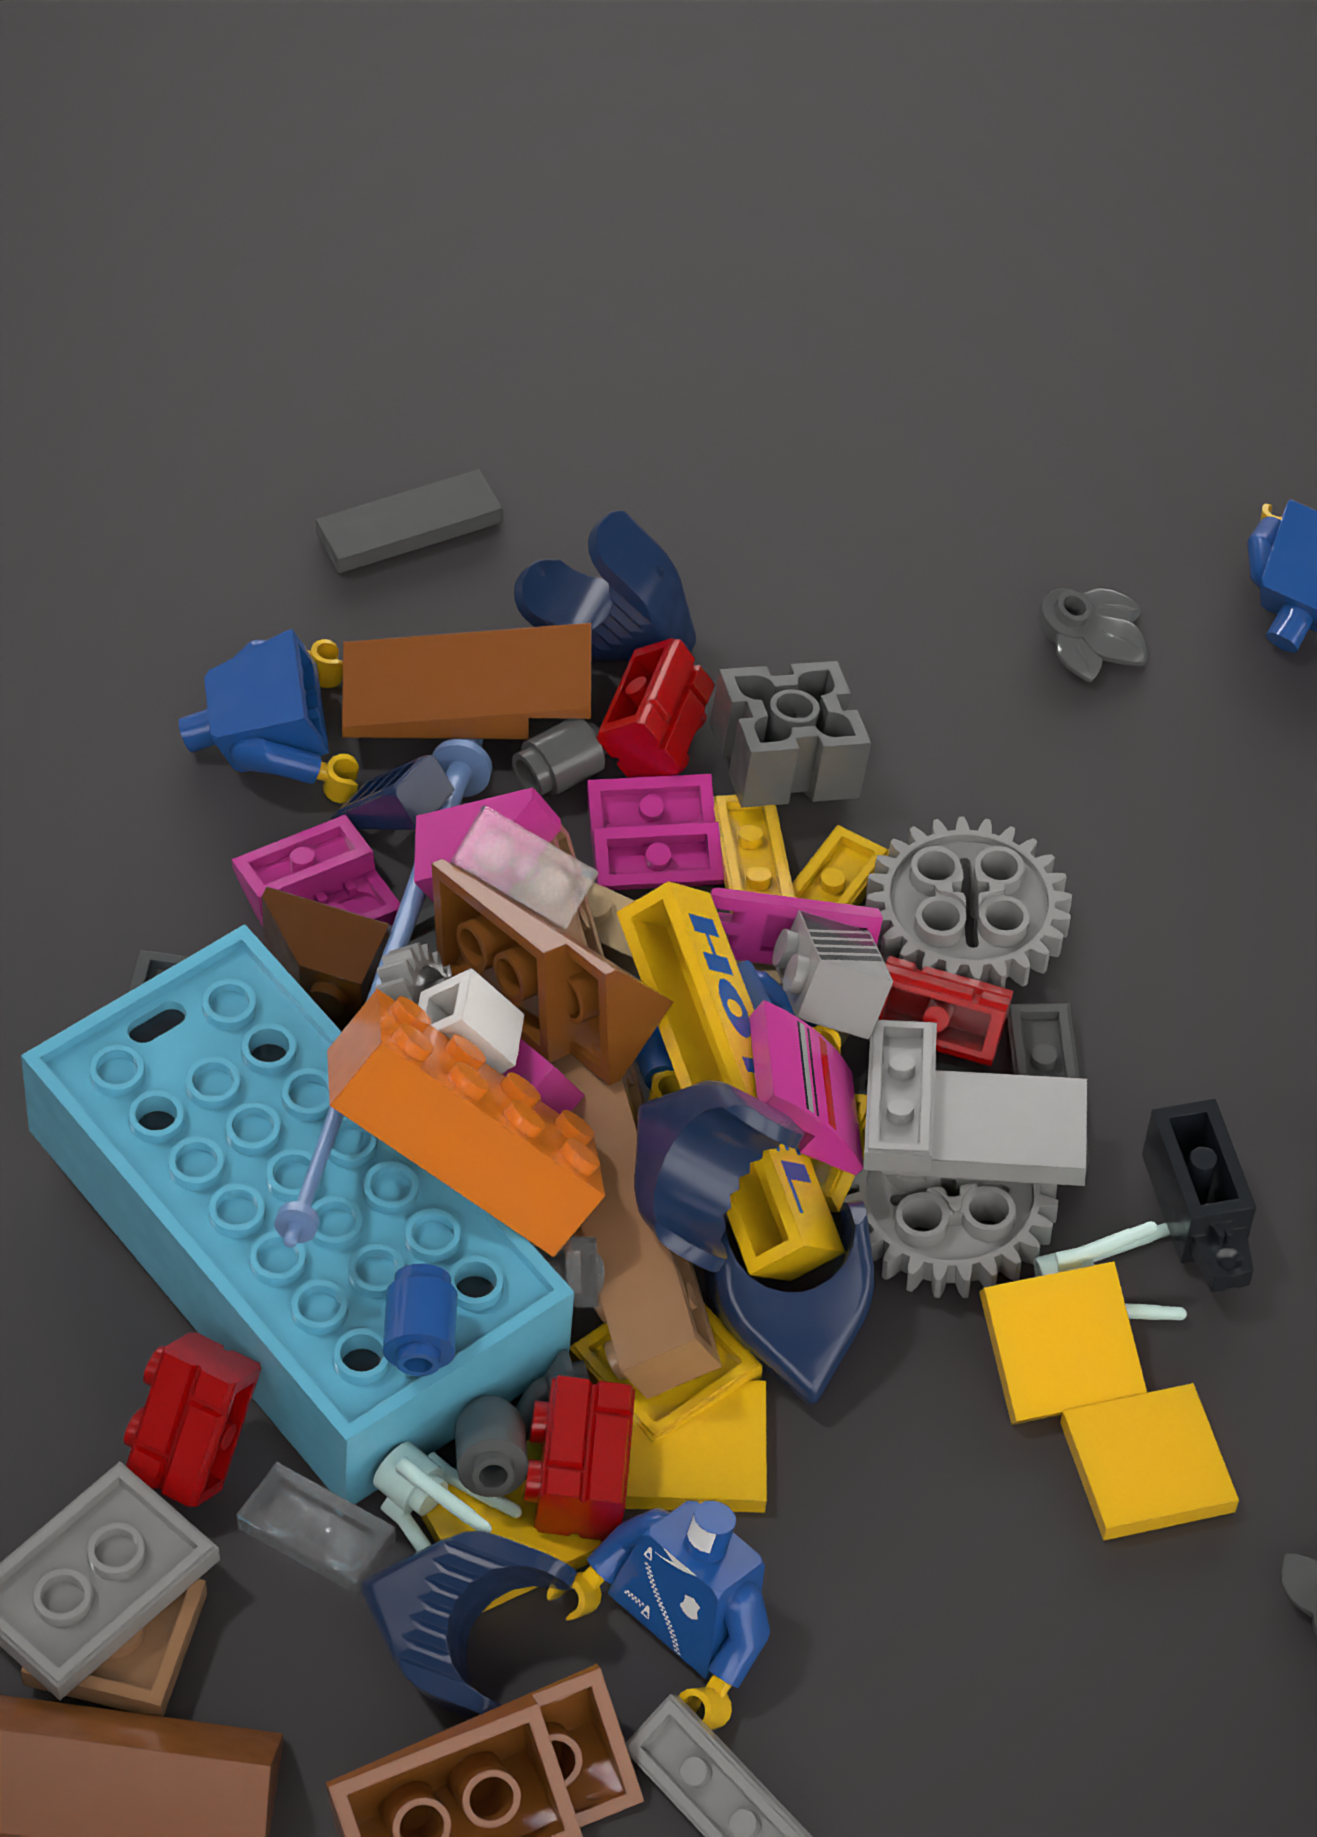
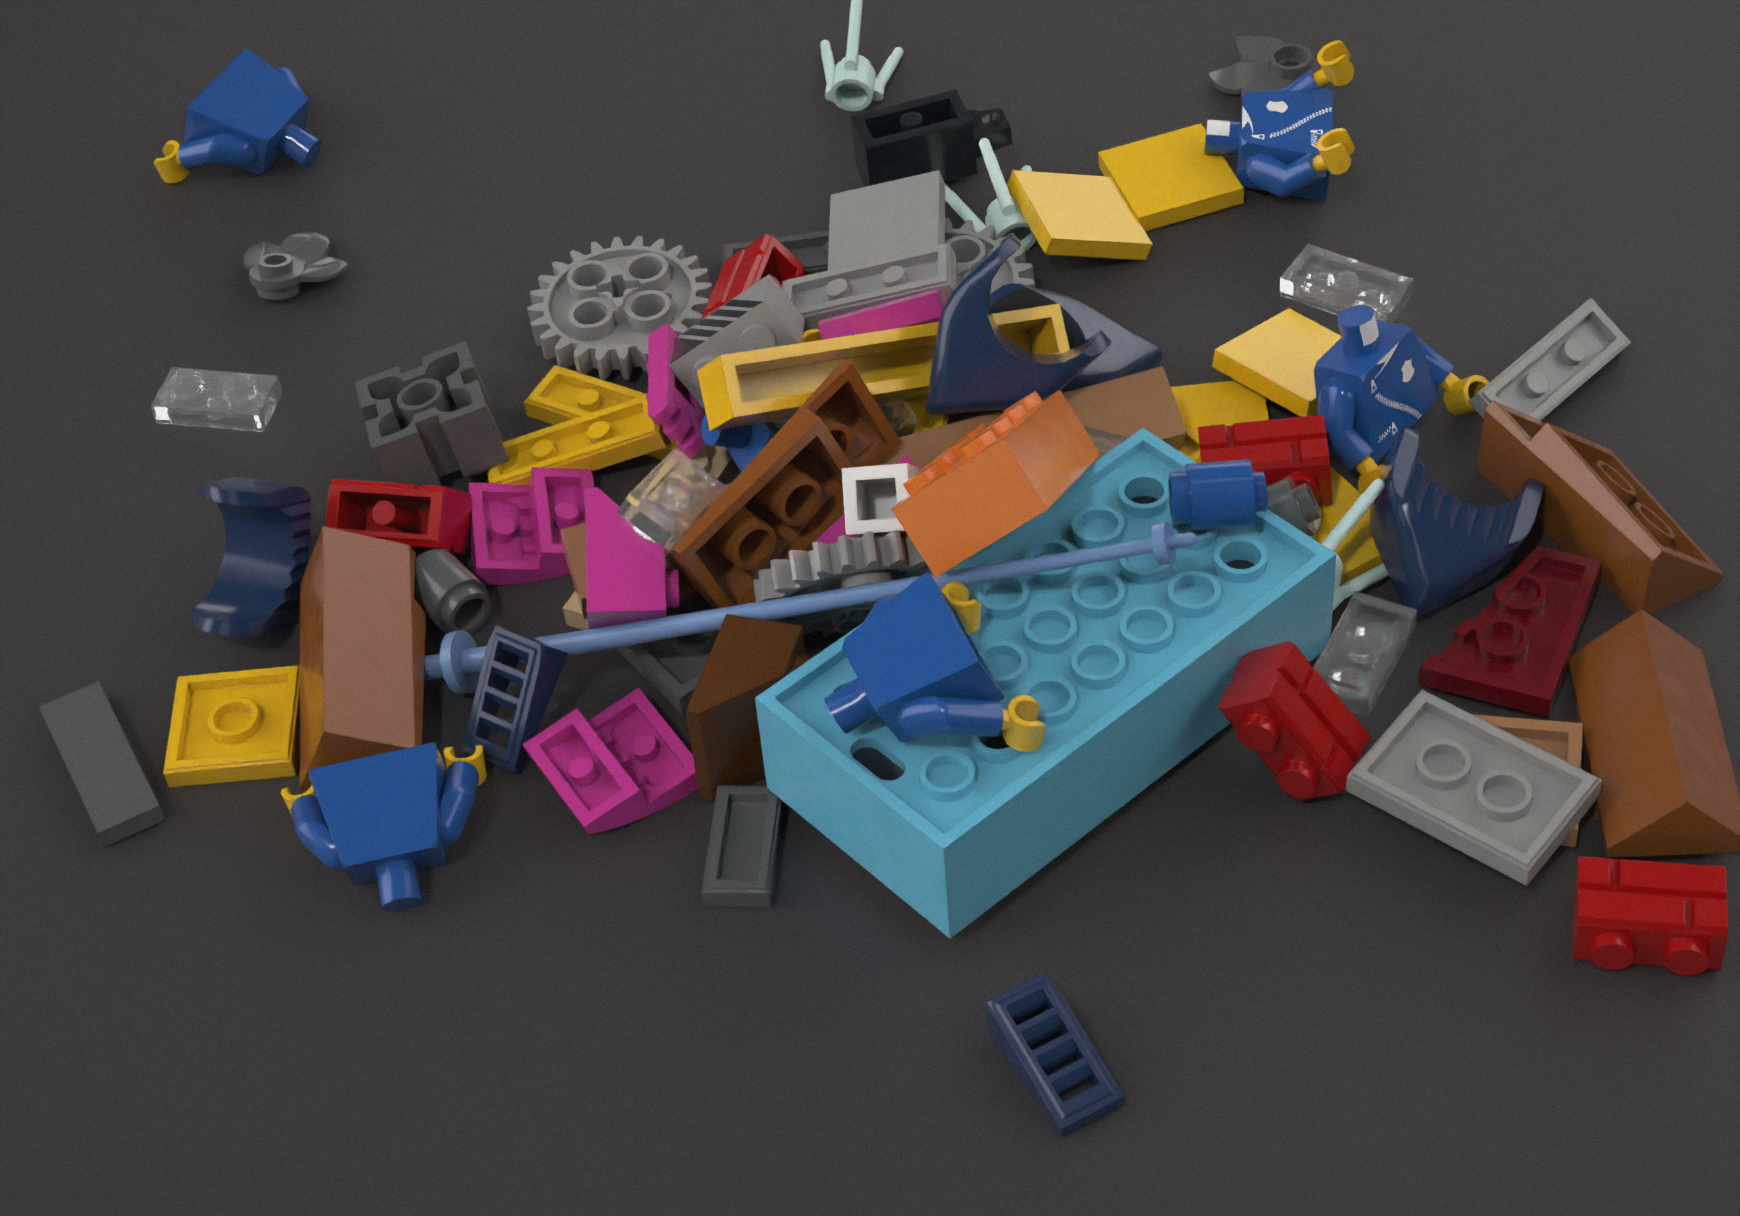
camera: 85 degrees left, 5 degrees down
(209, 1029) = (927, 673): none -> blue torso
(308, 1685) = (1523, 637): none -> dark red wing
(435, 599) = (234, 727): none -> yellow tile
(796, 1528) = (1278, 359): none -> yellow tile
(890, 581) = (217, 399): none -> clear plate
(905, 1609) = (1340, 282): none -> clear plate
(1180, 1577) = (1288, 134): none -> blue torso

